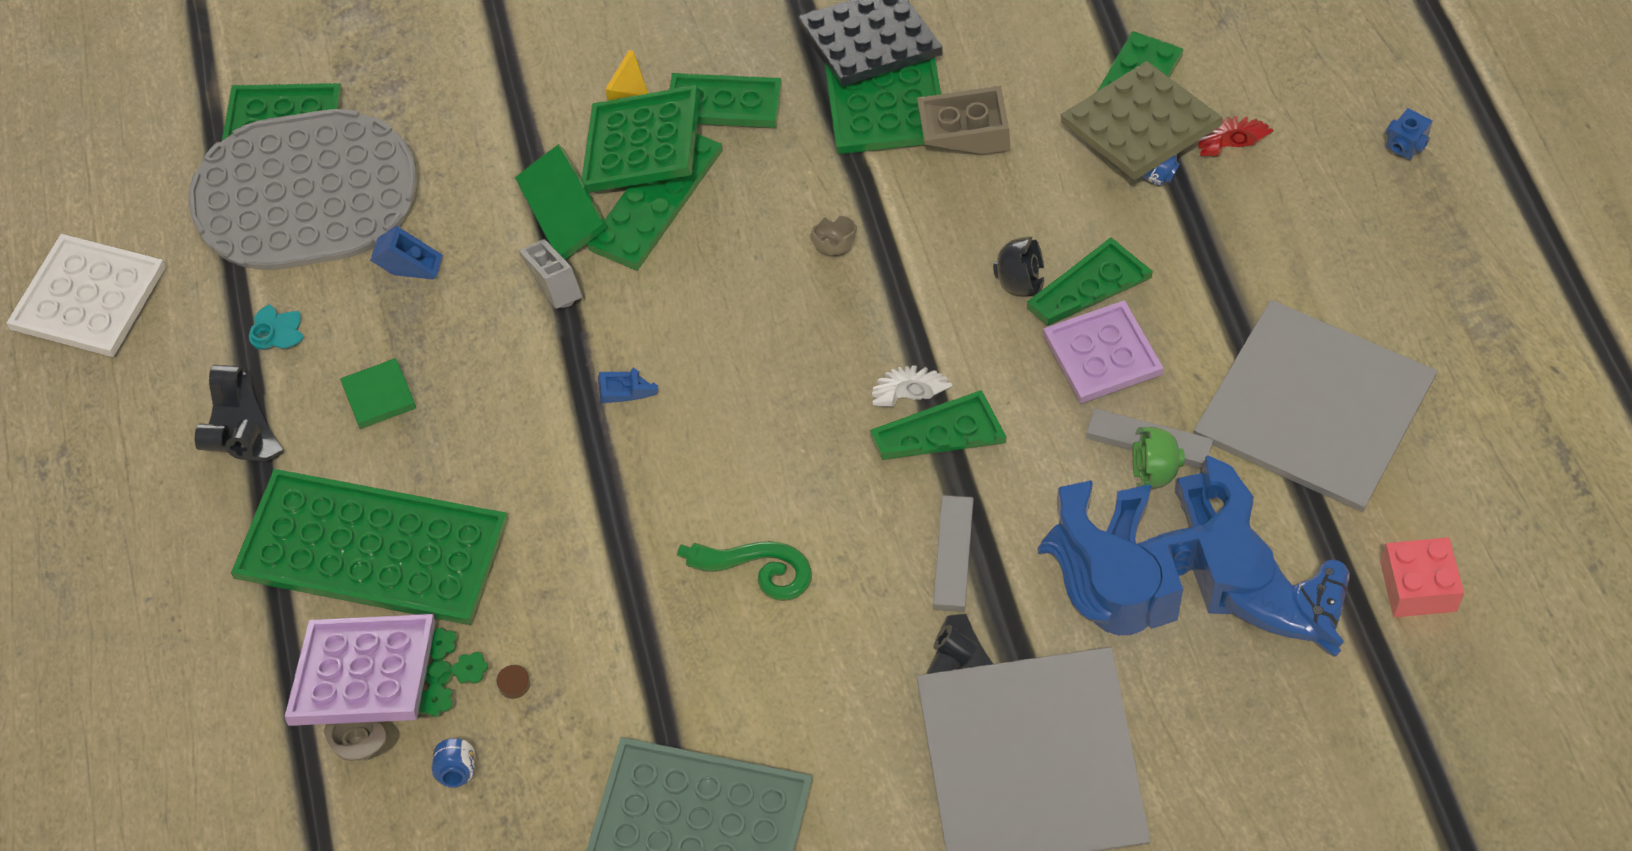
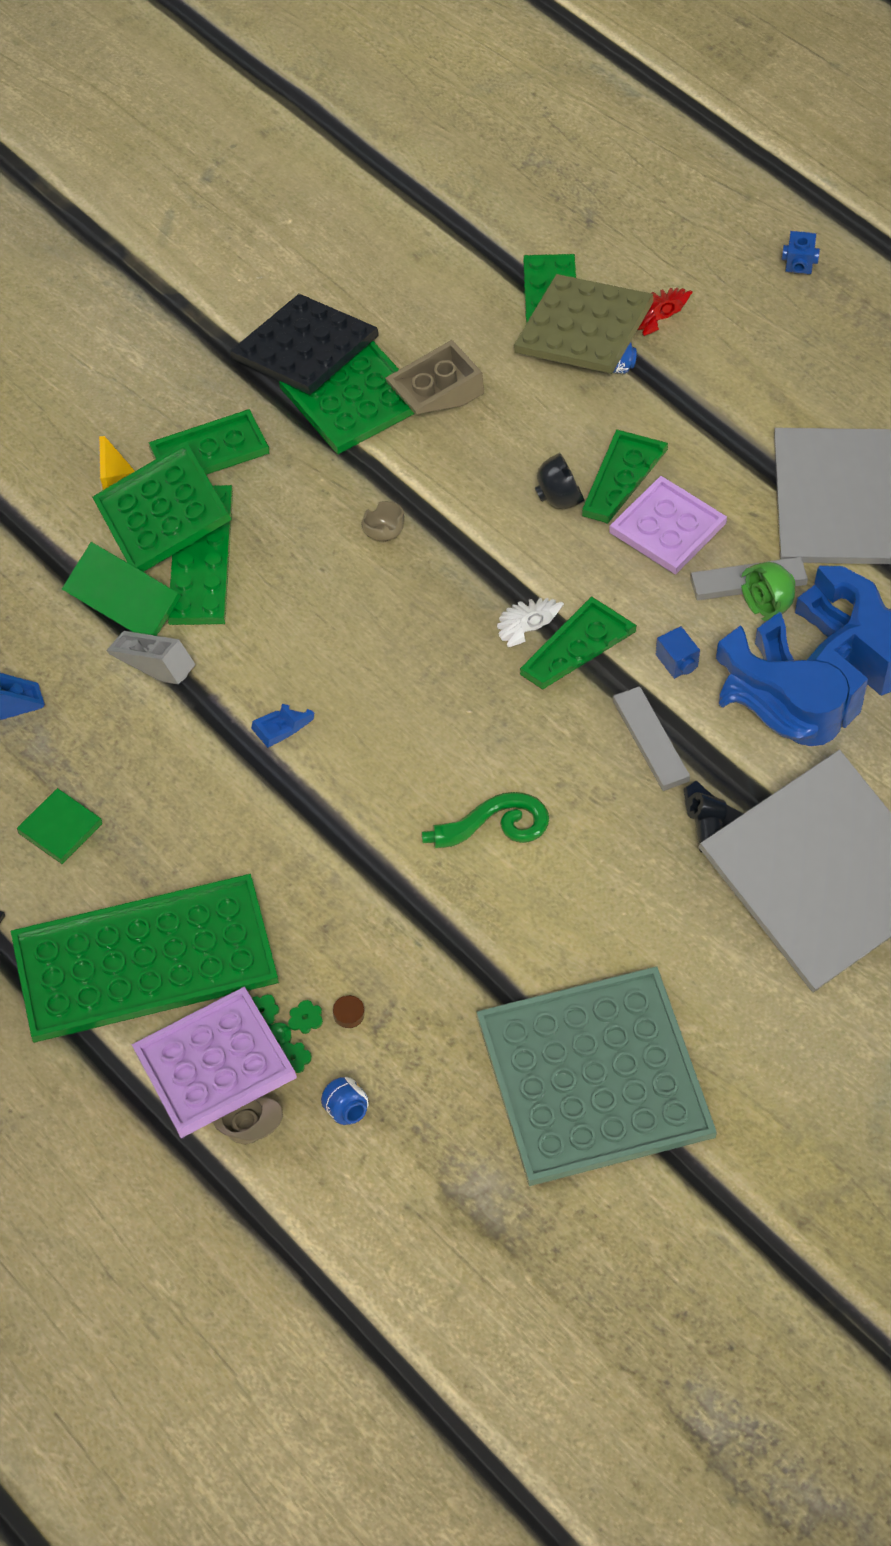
camera: 30 degrees left, 0 degrees up
(1029, 480) = (677, 652): none -> blue brick

